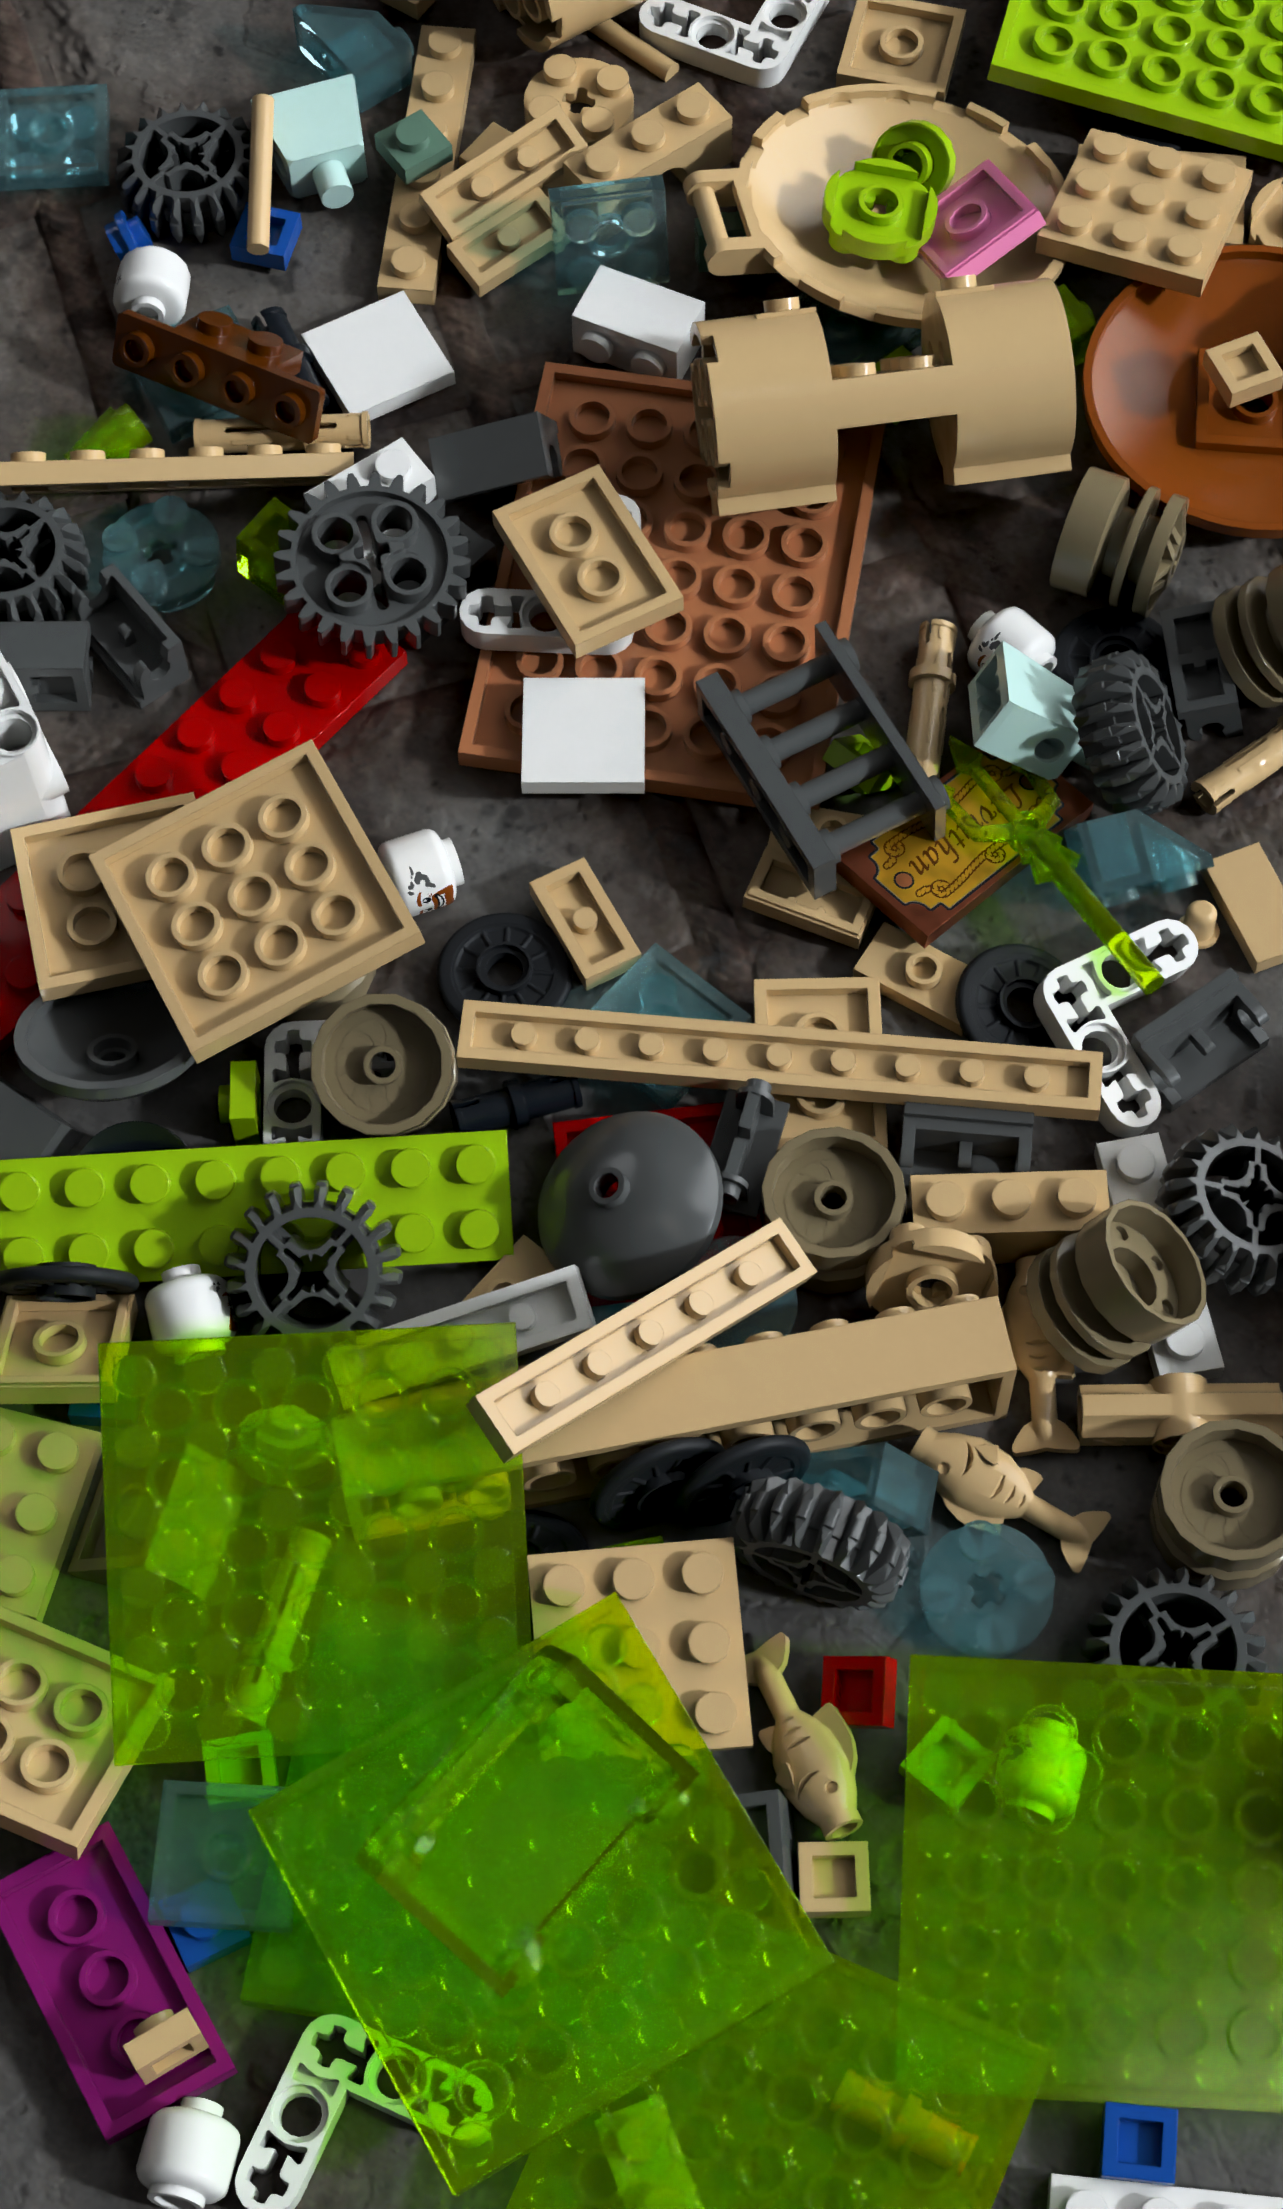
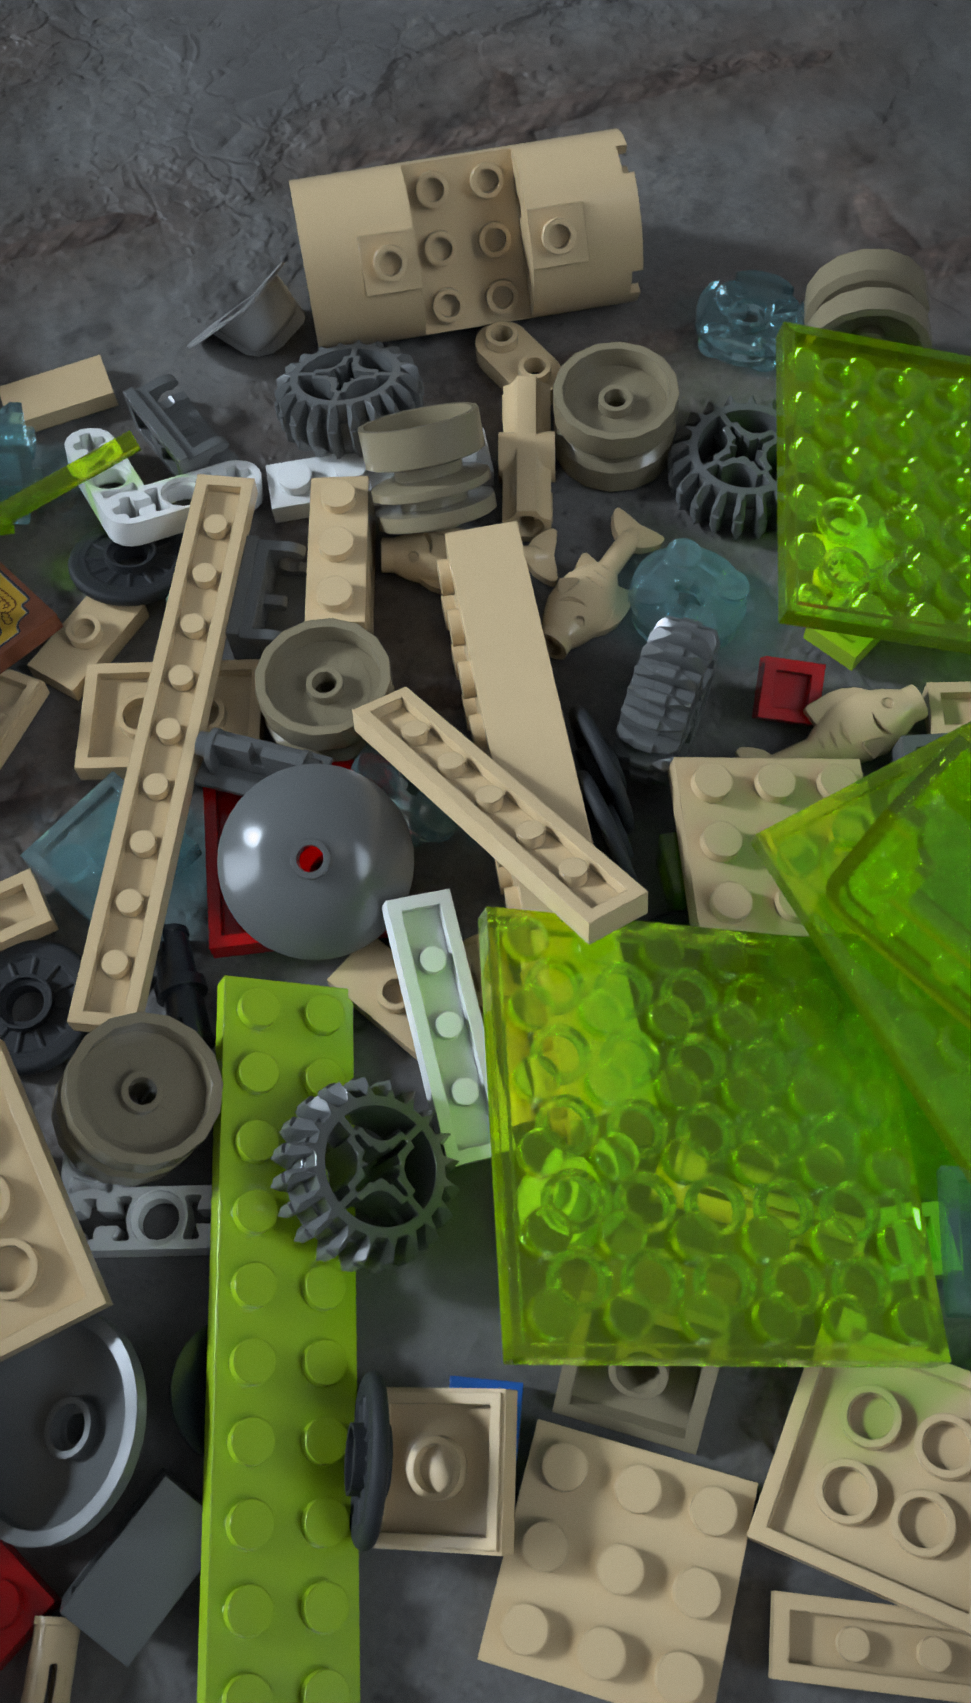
camera: 85 degrees left, 0 degrees up
(190, 1306) = (403, 1319): white head -> none
(242, 1102) = (150, 1272): lime plate -> none
(883, 1479) = (601, 673): clear light blue slope -> none
(927, 1253) = (404, 616): tan plate -> none
(1201, 920) = (61, 426): tan piece -> none

